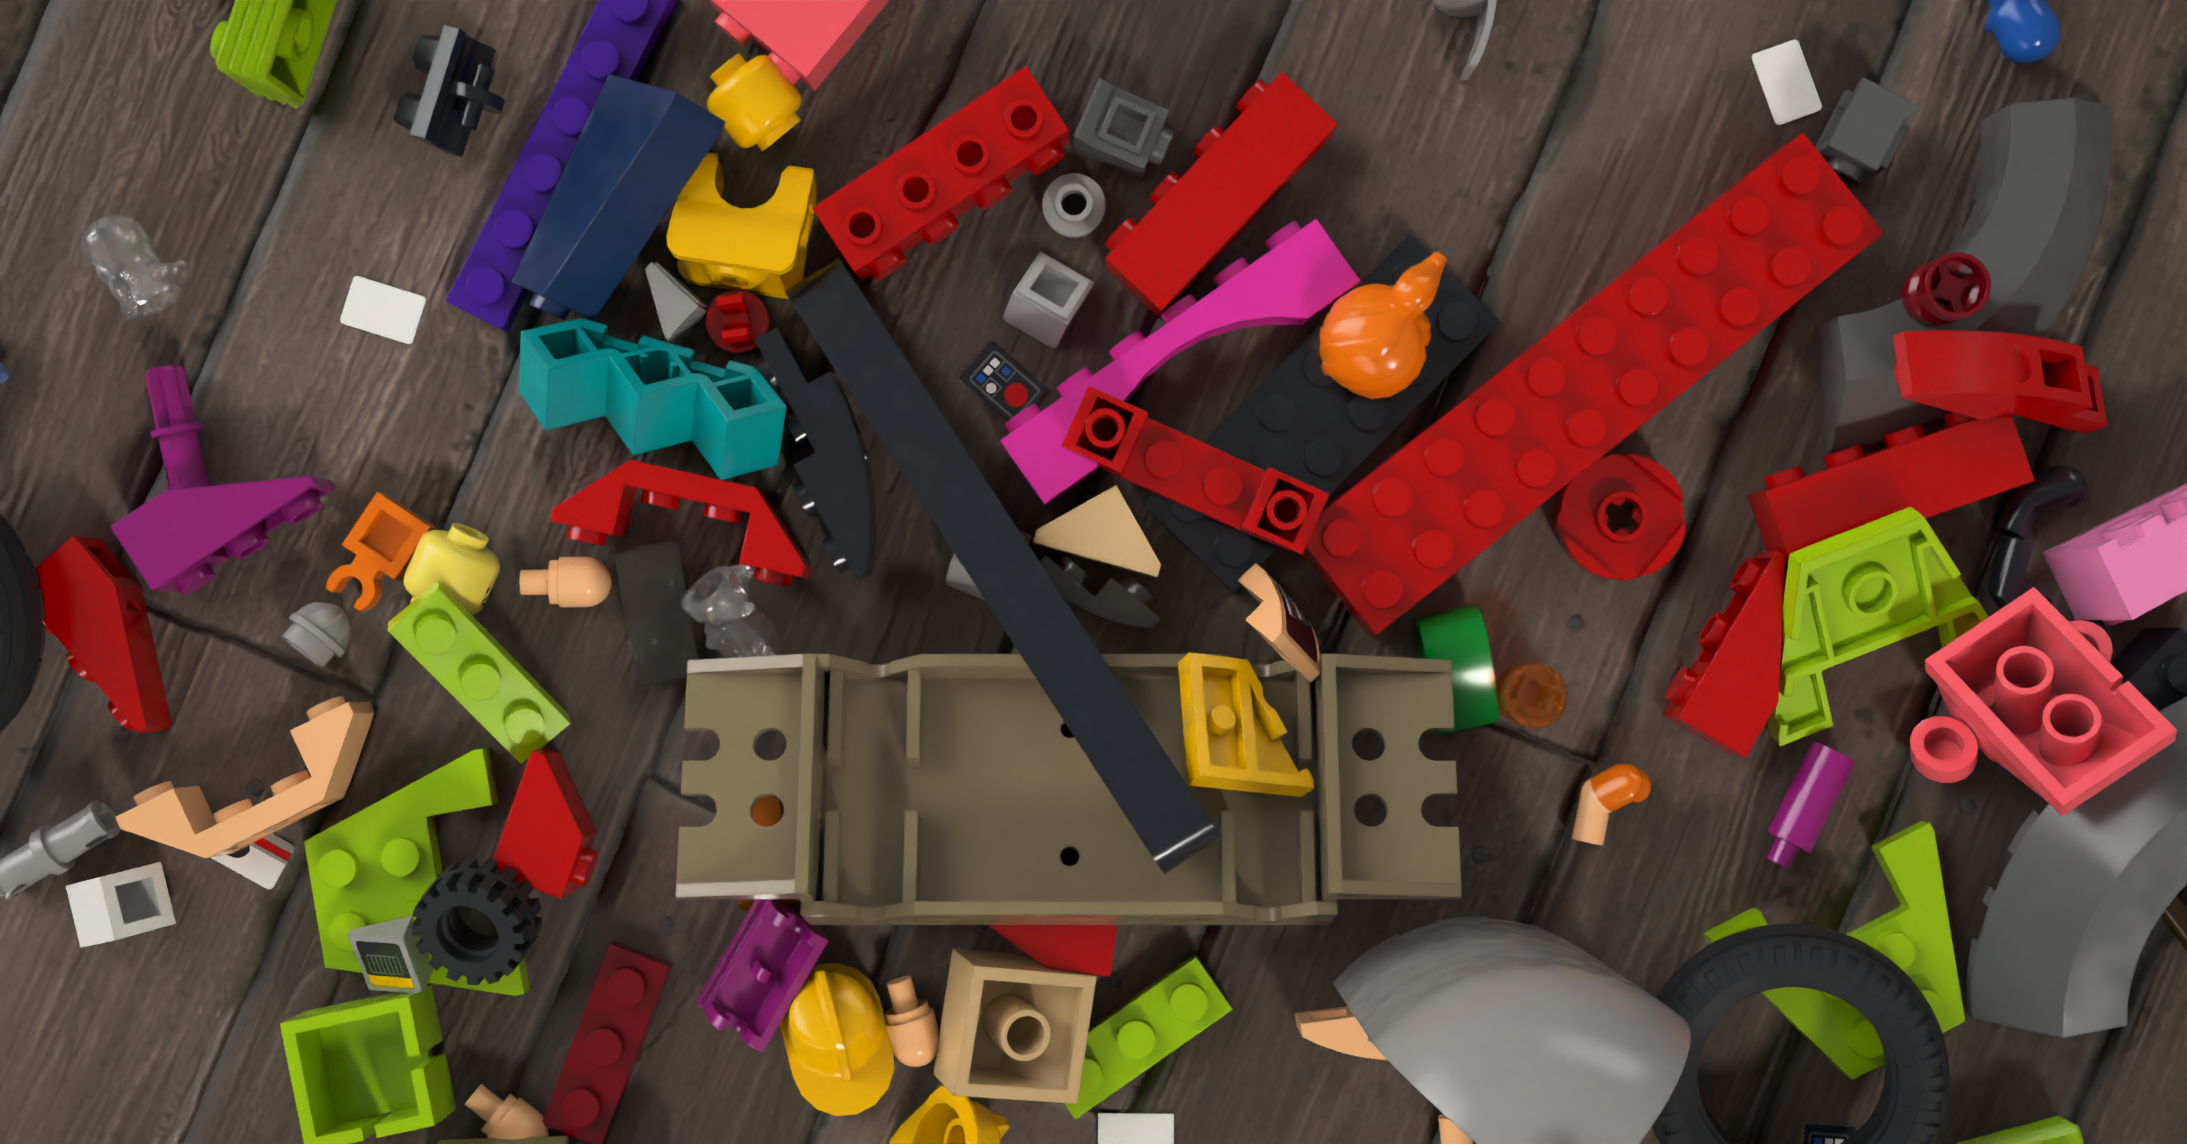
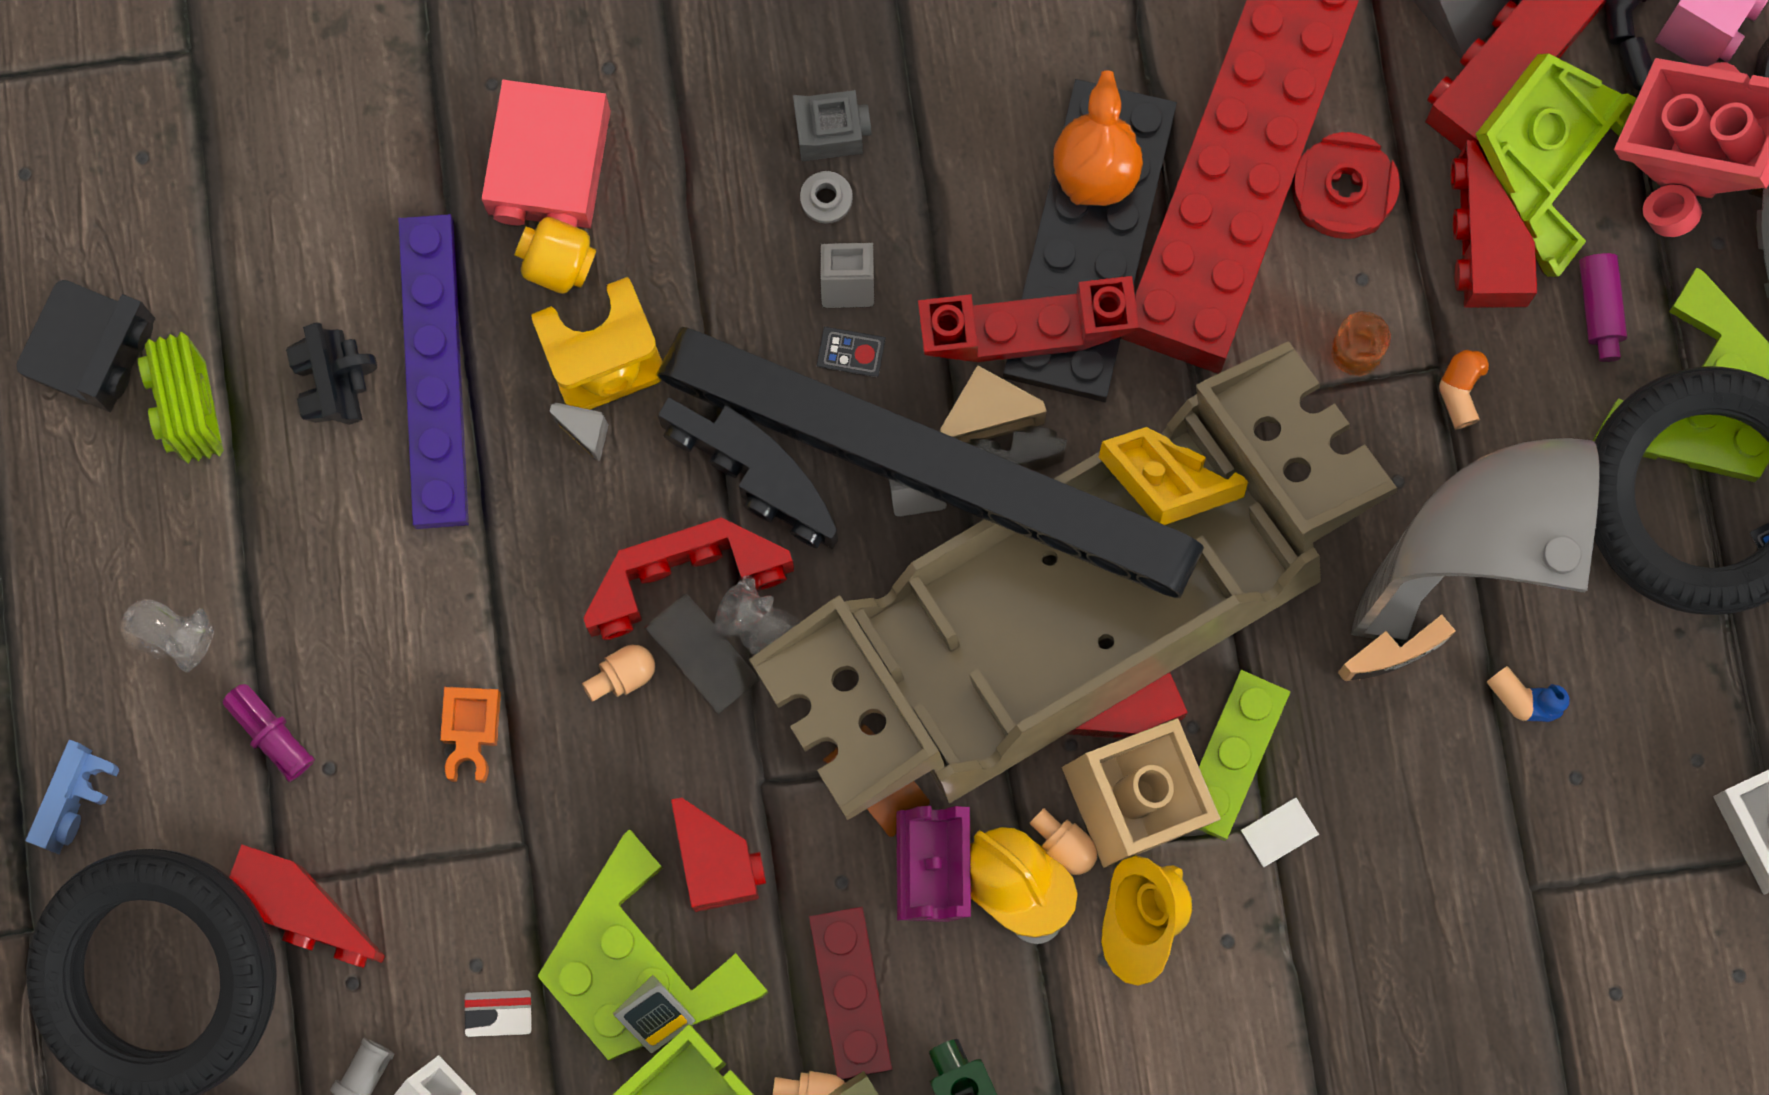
camera: 30 degrees left, 10 degrees down
(193, 530) = (329, 786): magenta slope -> none
(319, 632) = (459, 817): light grey plate -> none
(330, 750) = (431, 1014): light nougat slope -> none
(382, 310) = (367, 562): white sticker -> none
(458, 562) = (533, 713): light yellow head -> none
(459, 946) = (711, 976): black tyre -> none
(478, 672) = (598, 769): lime plate -> none
(613, 194) = (494, 372): dark blue slope -> none
(651, 395) = (607, 498): teal brick -> none
(737, 320) = (633, 417): red plate -> none
(944, 175) = (721, 228): red brick -> none
(1219, 194) = (925, 129): red brick -> none
(1282, 288) = (1009, 168): dark pink arch -> none
(1282, 623) = (1153, 391): light nougat slope -> none
(1463, 639) = (1290, 325): green panel -> none

